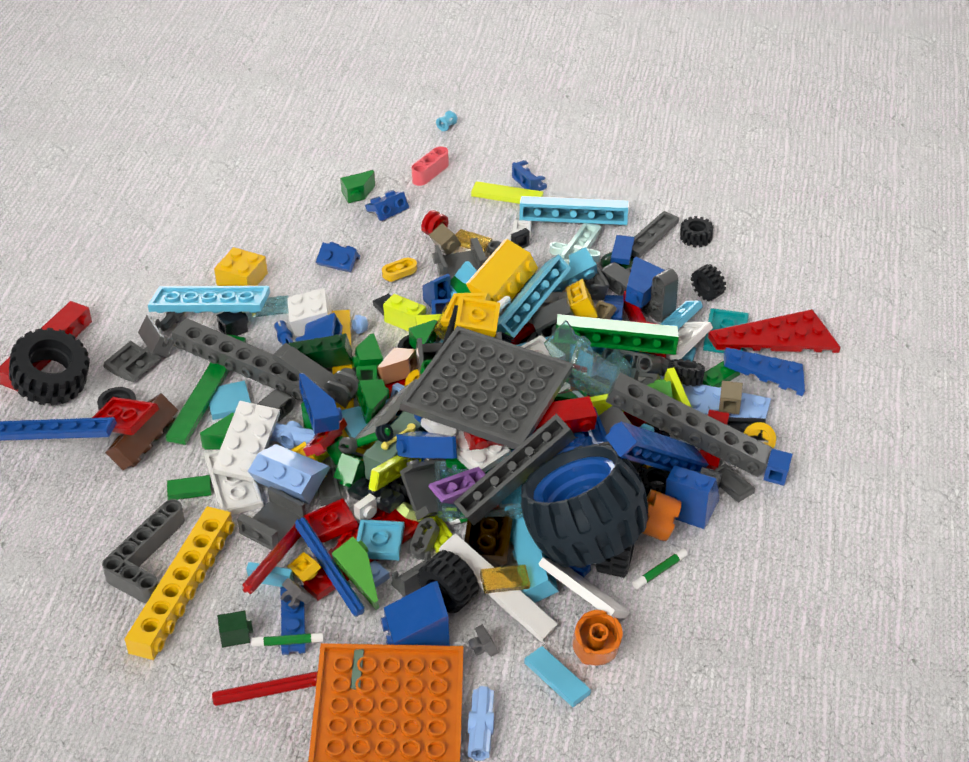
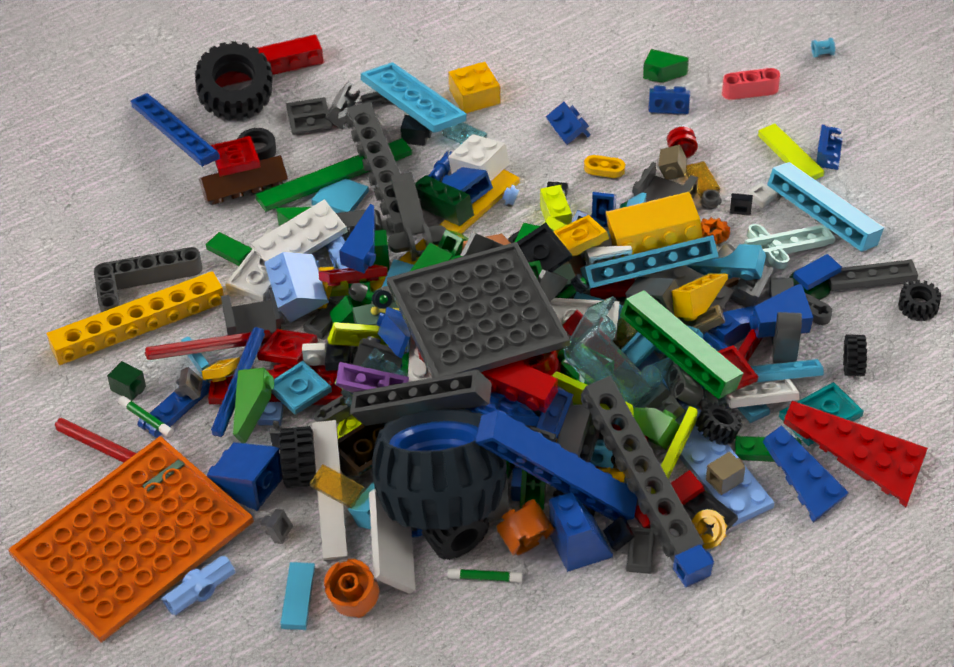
camera: 45 degrees right, 5 degrees up
(367, 353) = (482, 223): green slope -> none
(478, 315) = (548, 244): yellow plate -> none

